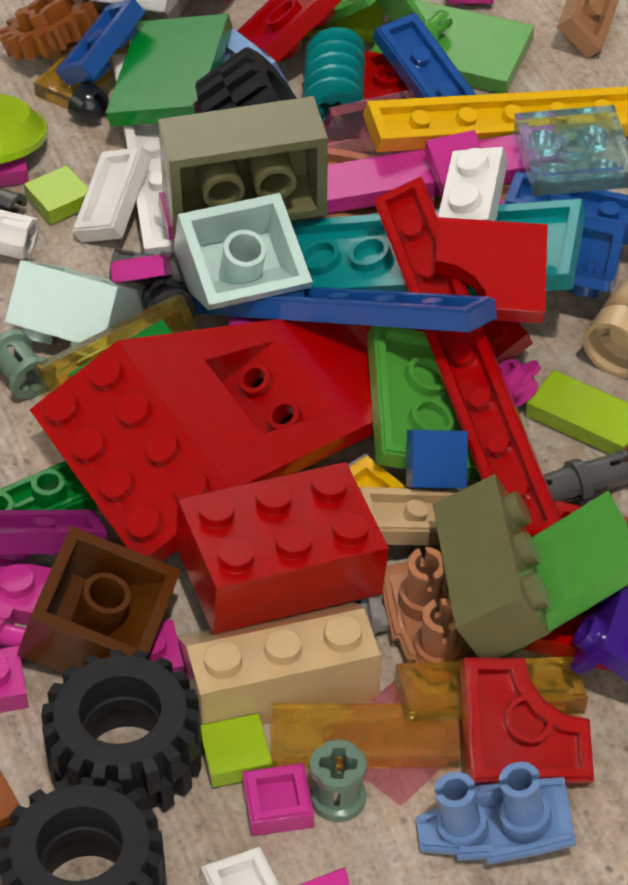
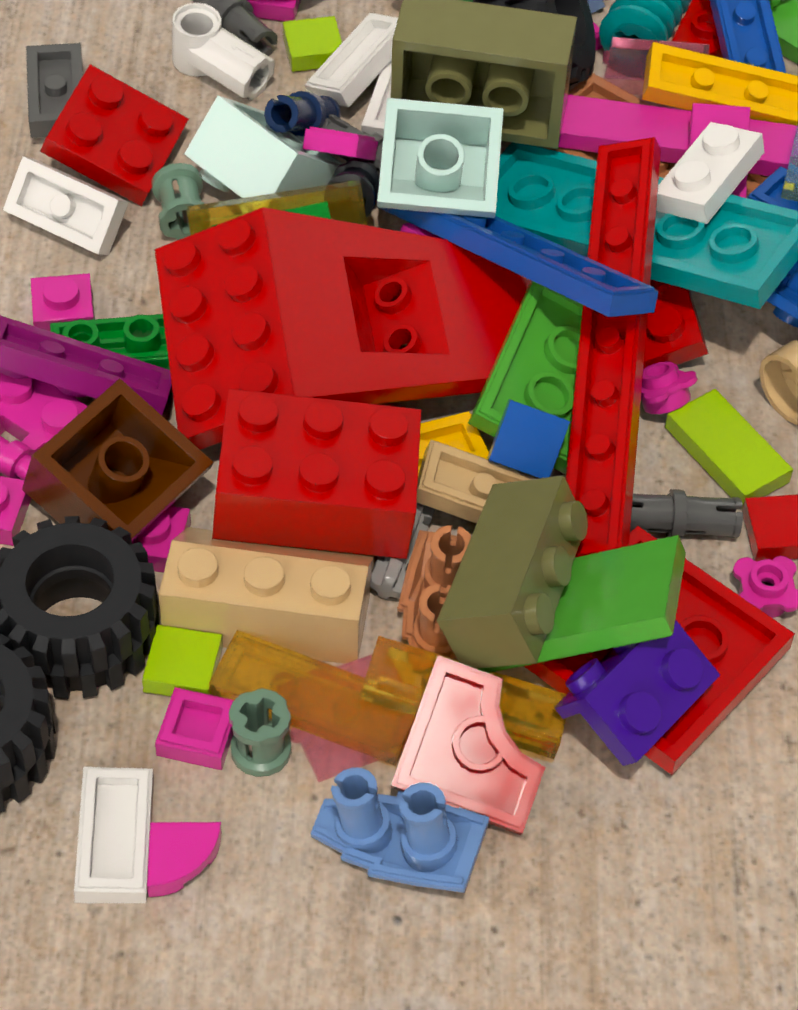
camera: 20 degrees right, 5 degrees up
(81, 258) = (299, 112): none -> dark blue pin
(498, 262) = (688, 255): red tile -> none

